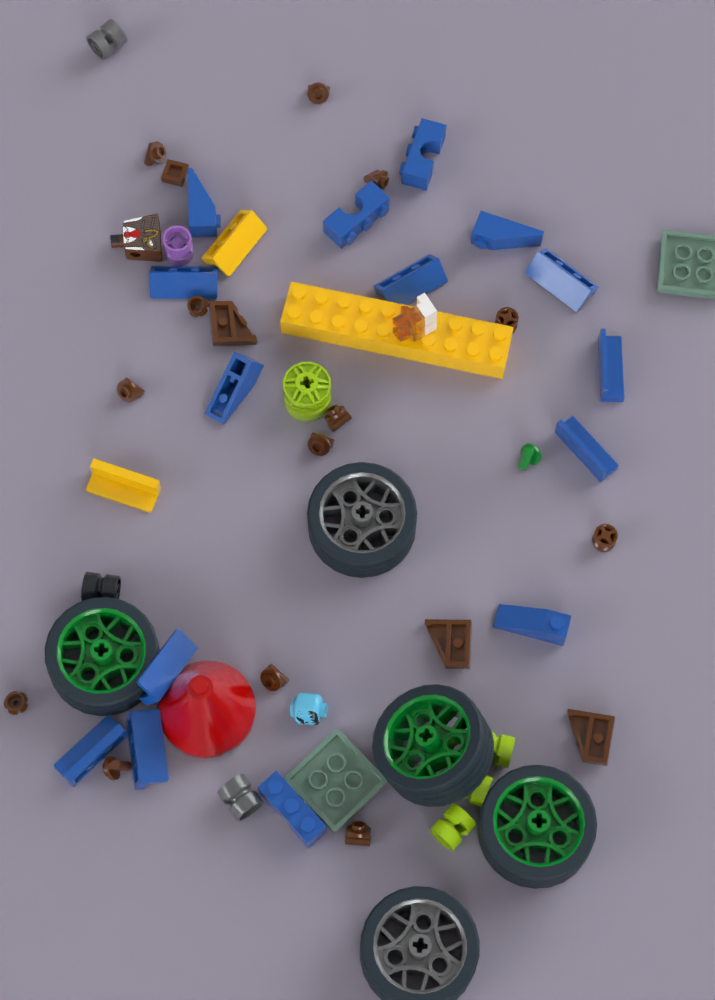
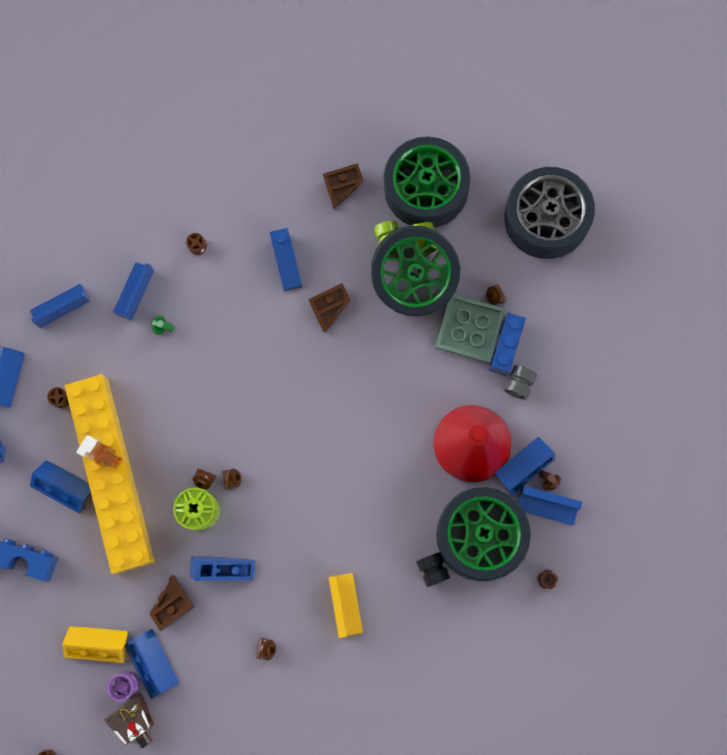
camera: 115 degrees left, 10 degrees up
(166, 667) = (465, 481): blue panel -> none
(175, 173) = (57, 731): reddish brown plate -> none
(194, 302) = (167, 643): reddish brown plate -> none
(202, 211) = (82, 685): blue slope -> none
(272, 678) = (425, 410): reddish brown plate -> none
(308, 709) = (433, 373): medium azure head -> none
(362, 519) = (261, 381): wheel -> none
(452, 827) = (458, 236): lime wheel -> none

